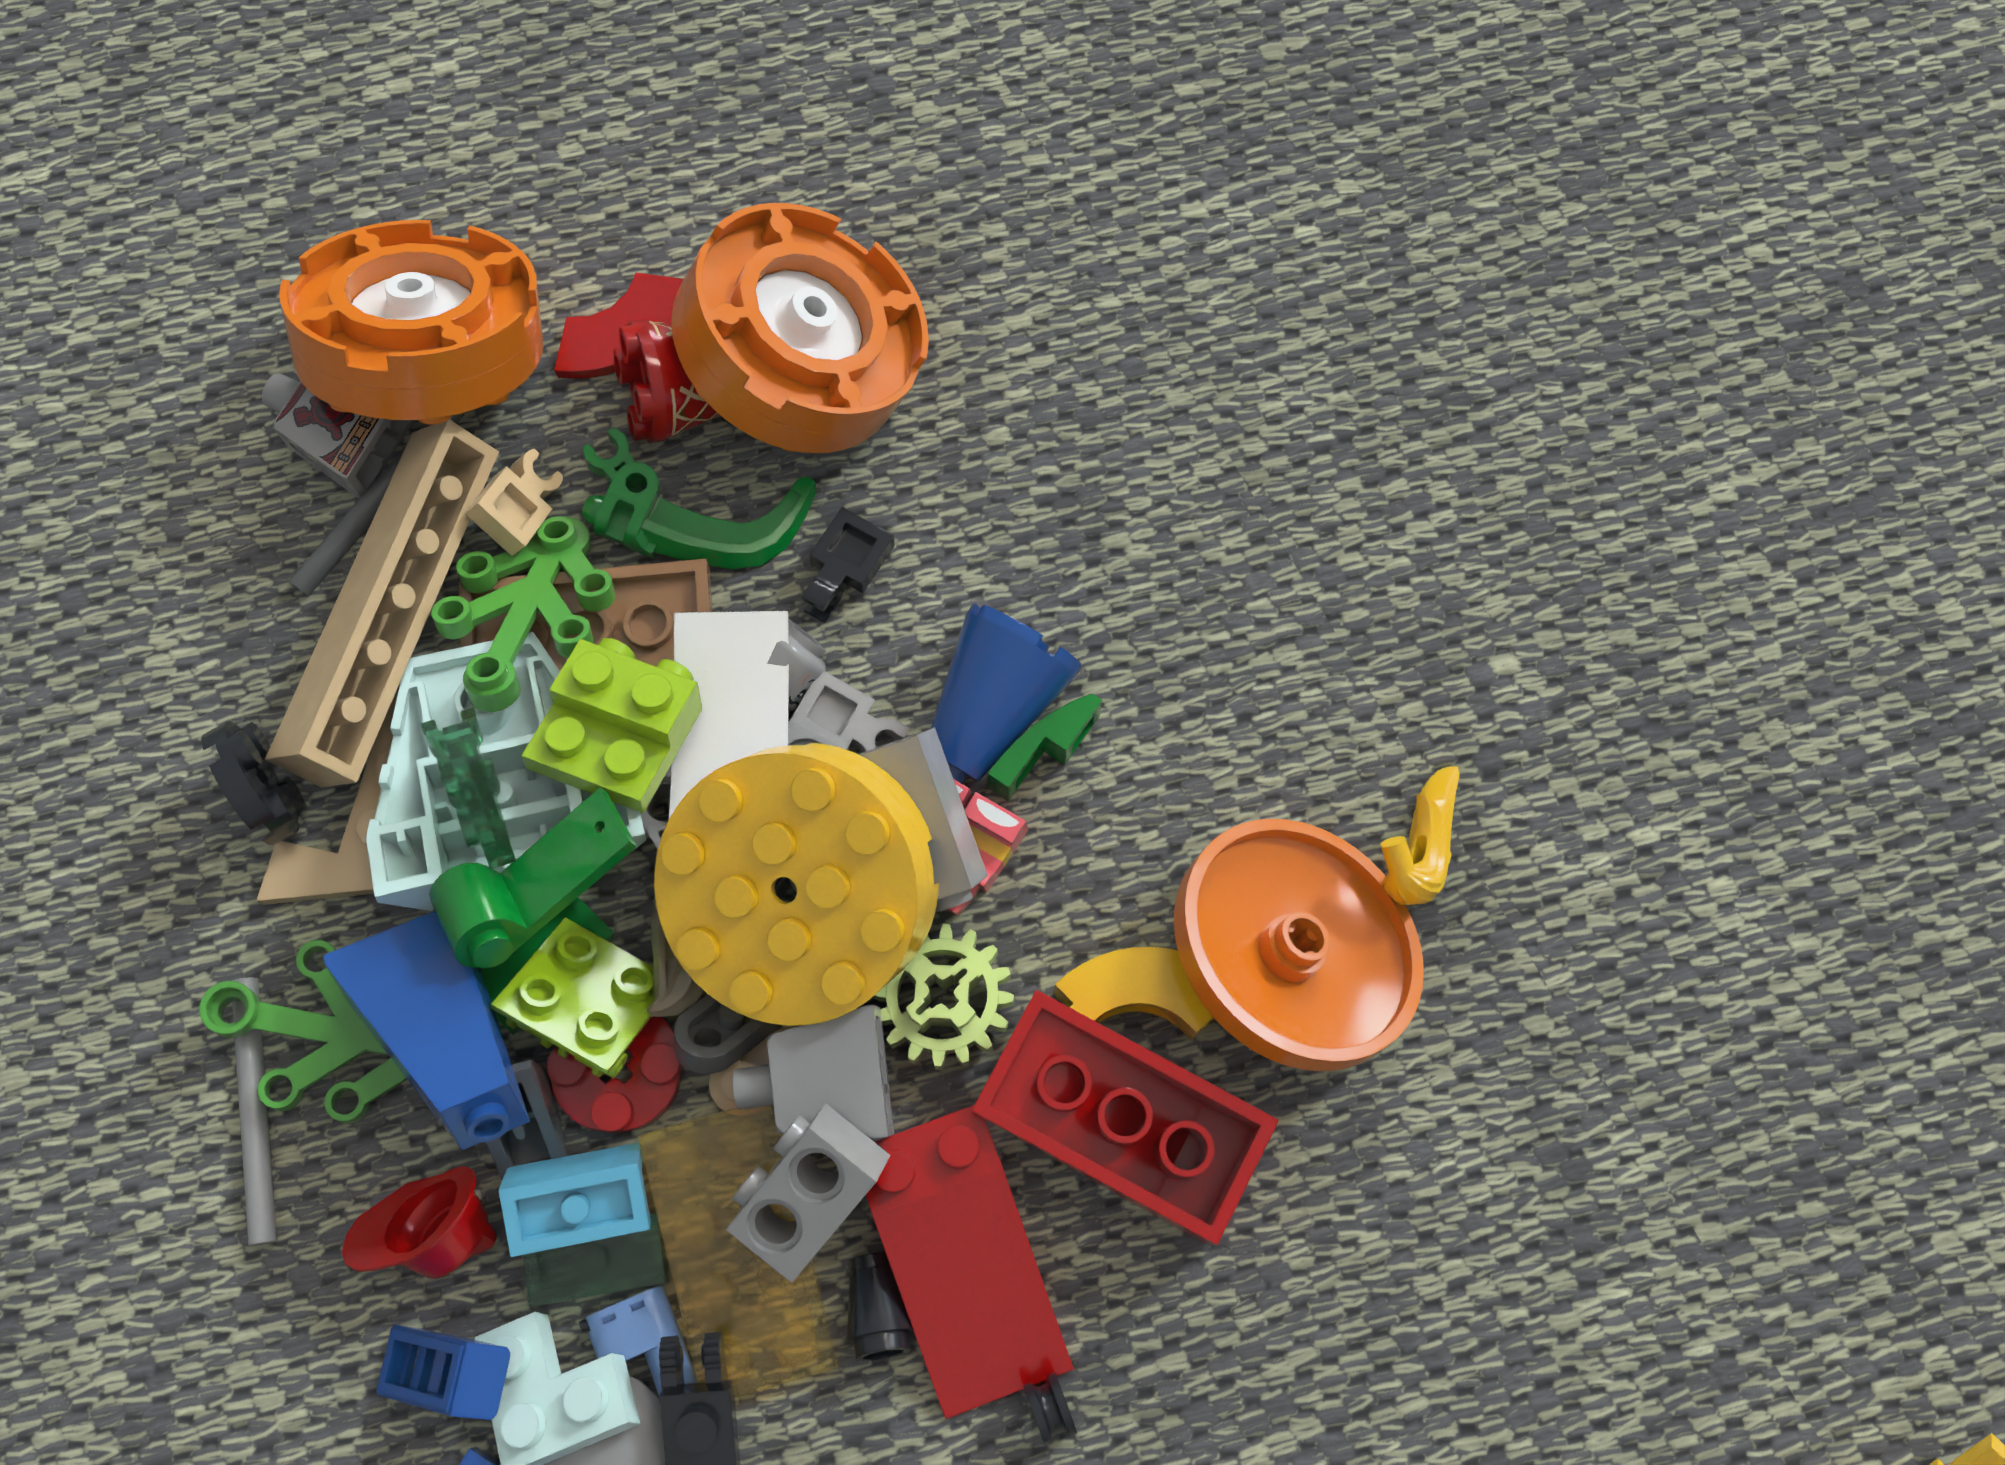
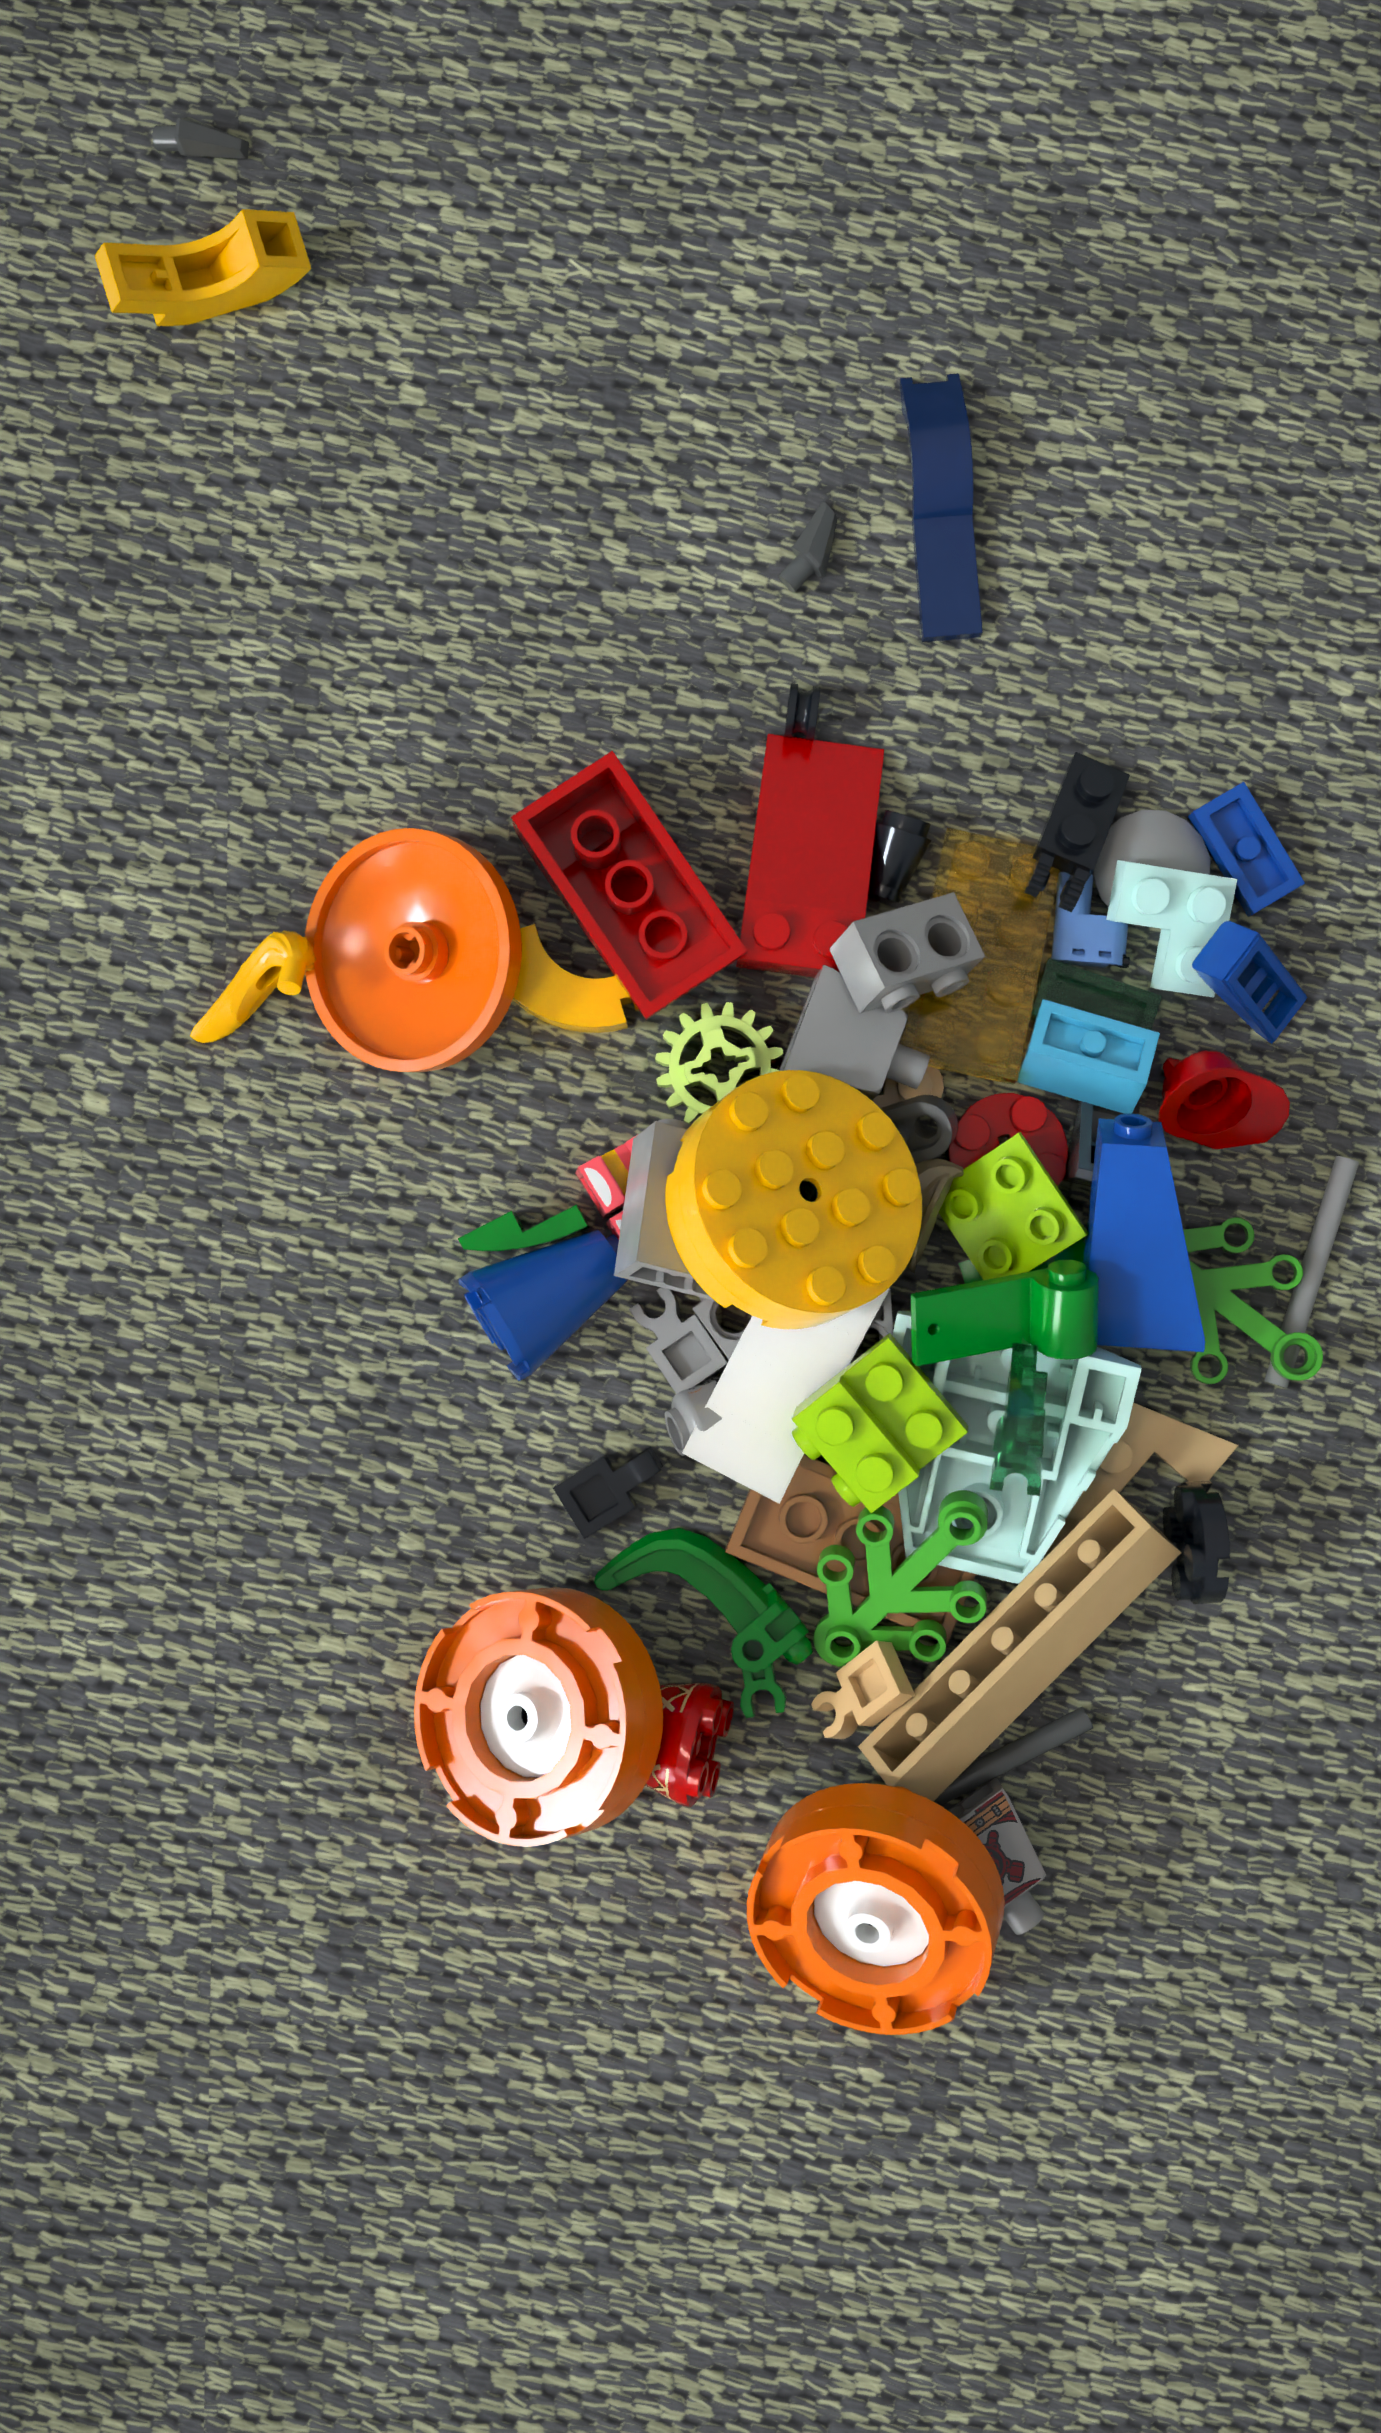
camera: 155 degrees left, 15 degrees up
(590, 340) = (663, 1828): red tile -> none

